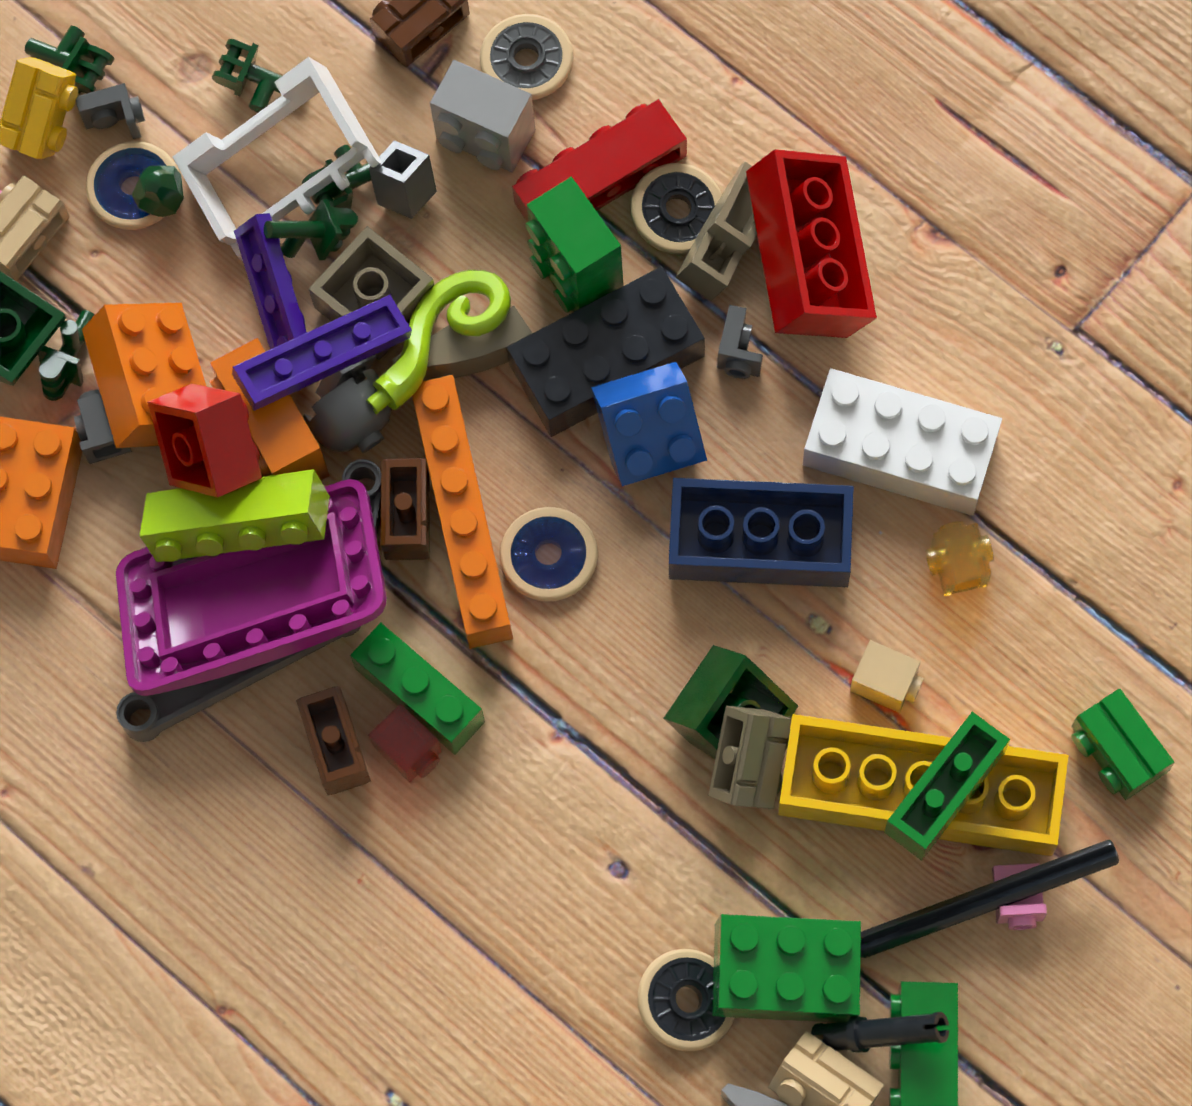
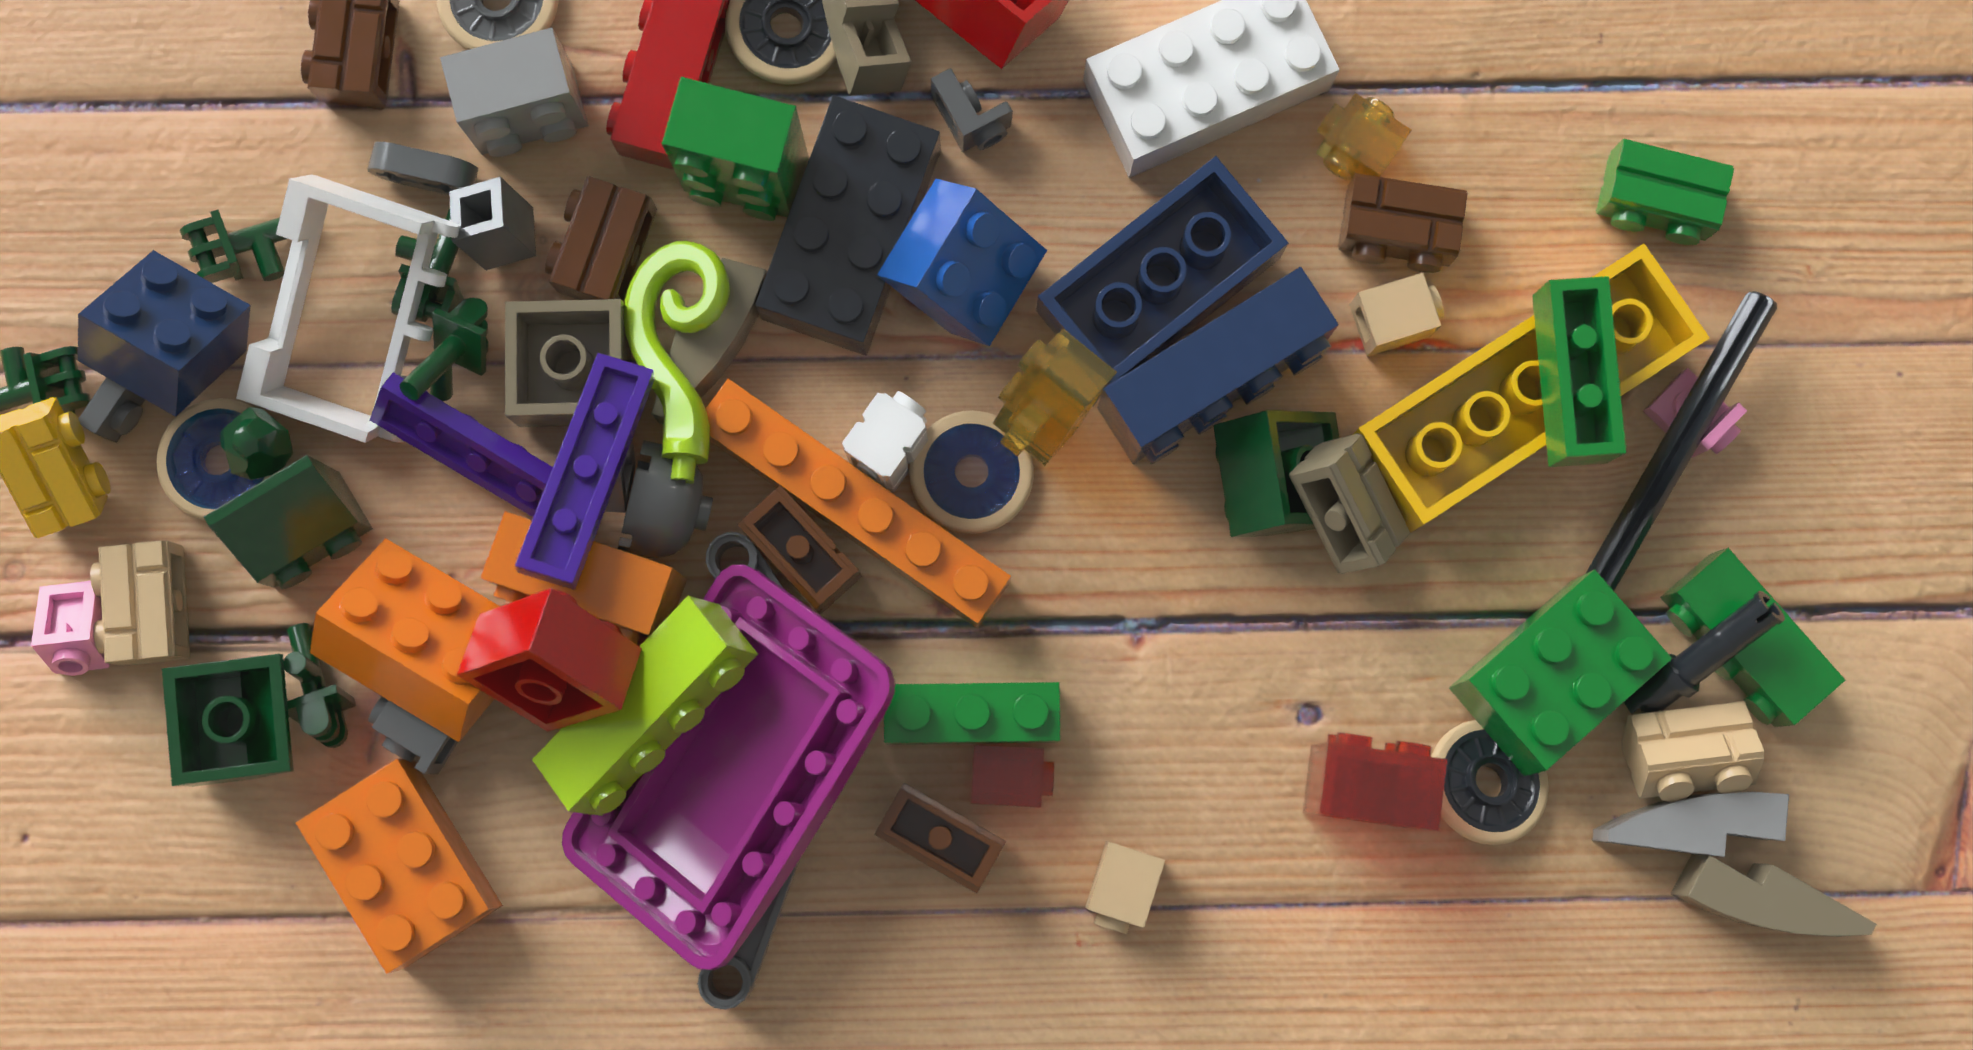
camera: 50 degrees left, 10 degrees up
(138, 250) = (291, 523): none -> dark green slope
(166, 87) = (163, 332): none -> dark blue brick
(392, 115) = (420, 168): none -> dark grey beam
(413, 865) = (1123, 887): none -> tan brick
(456, 241) = (601, 241): none -> reddish brown brick
(511, 487) = (887, 439): none -> white brick
(611, 930) = (1375, 785): none -> clear red brick
(628, 544) = (1051, 396): none -> clear yellow brick
(742, 611) = (1217, 365): none -> dark blue brick
(940, 626) = (1402, 222): none -> reddish brown brick

